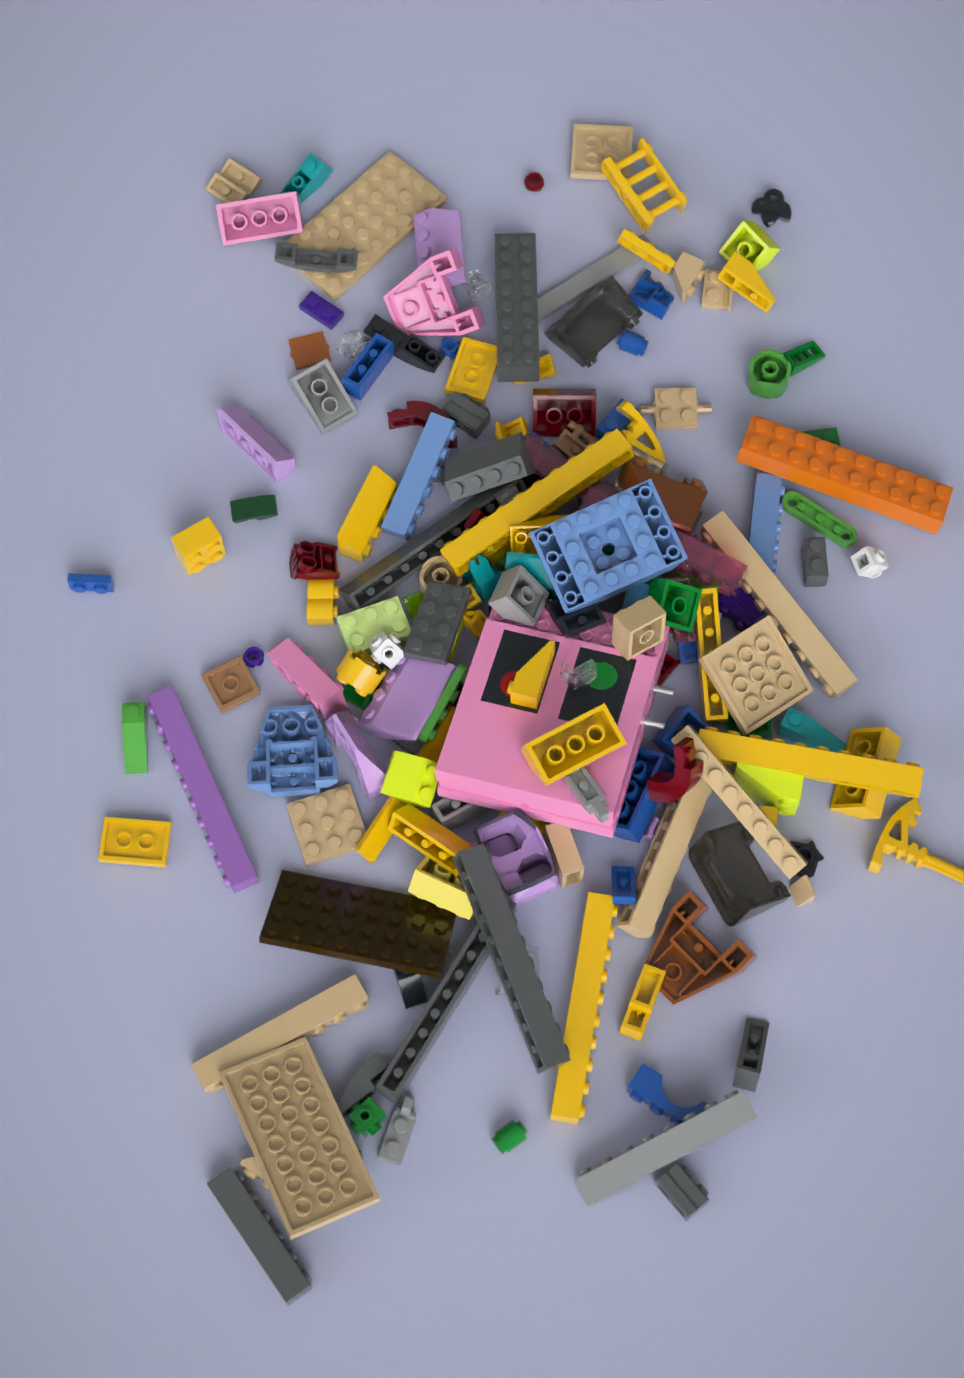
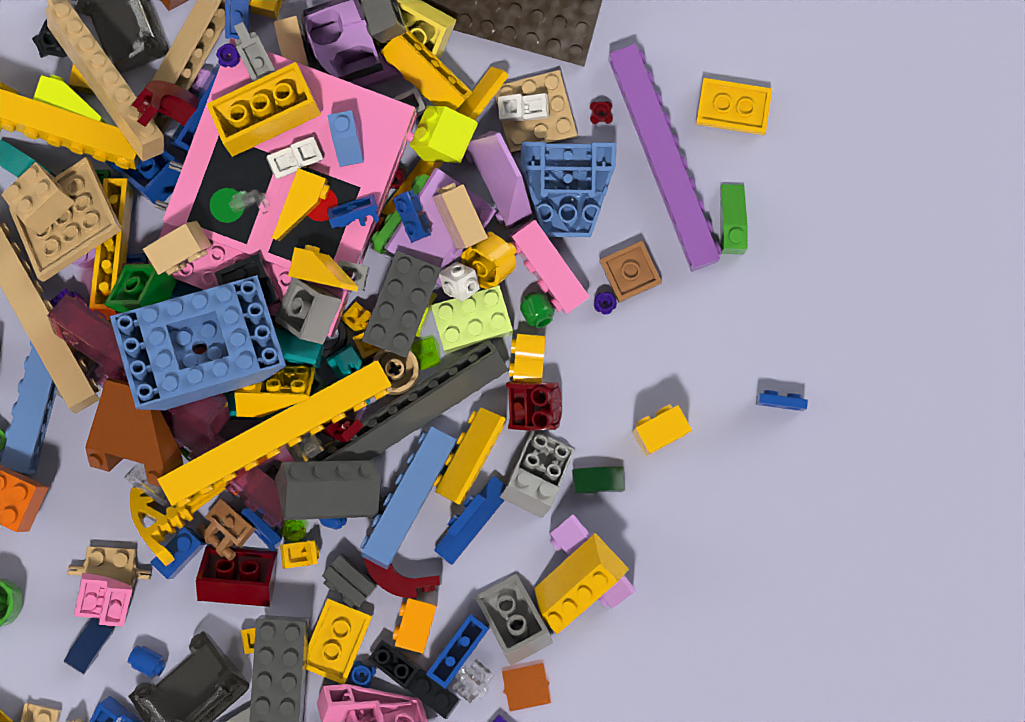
camera: 175 degrees left, 15 degrees up
(258, 824) = (601, 106): none -> dark red plate
(266, 415) = (578, 583): none -> yellow slope
(307, 508) = (537, 474): none -> light grey slope
(315, 643) = (537, 310): none -> green head
(340, 820) = (523, 107): none -> white slope
(353, 481) = (471, 521): none -> blue bracket
(388, 690) = (459, 216): none -> tan brick
(406, 384) = (415, 625): none -> light orange brick
(427, 684) = (415, 226): none -> blue hinge
(481, 623) = (361, 273): none -> light grey brick
(484, 674) = (358, 209): none -> blue plate
(497, 735) = (345, 138): none -> medium blue slope
(507, 617) = (319, 268): none -> yellow slope
(539, 717) = (296, 156): none -> white slope
(613, 787) = (222, 55): none -> dark purple plate
(672, 383) = (103, 599): none -> bright pink slope
(684, 352) = (87, 646): none -> dark blue slope
(782, 686) = (37, 198): none -> tan brick

